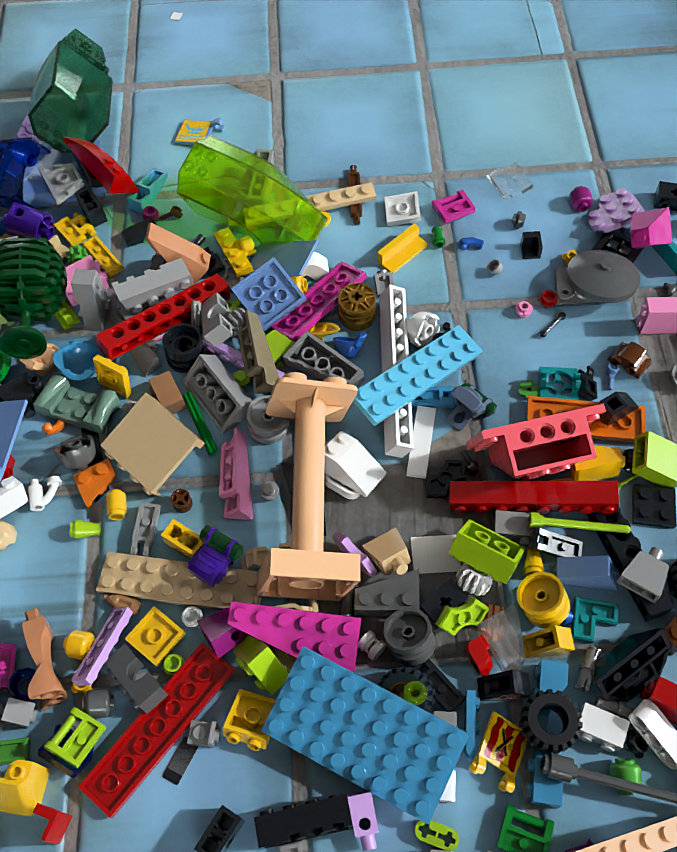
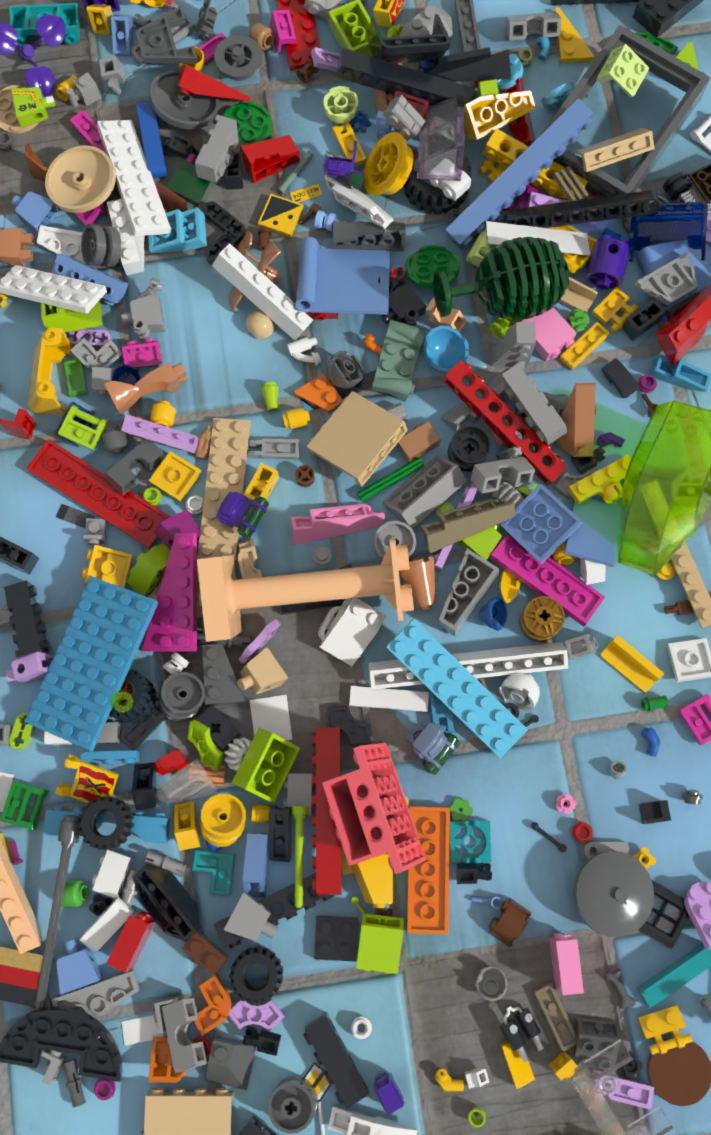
camera: 80 degrees right, 15 degrees up
(112, 376) = (428, 389): yellow plate -> none
(617, 406) = (438, 901): black slope -> none
(651, 228) = (683, 951): dark pink slope -> none

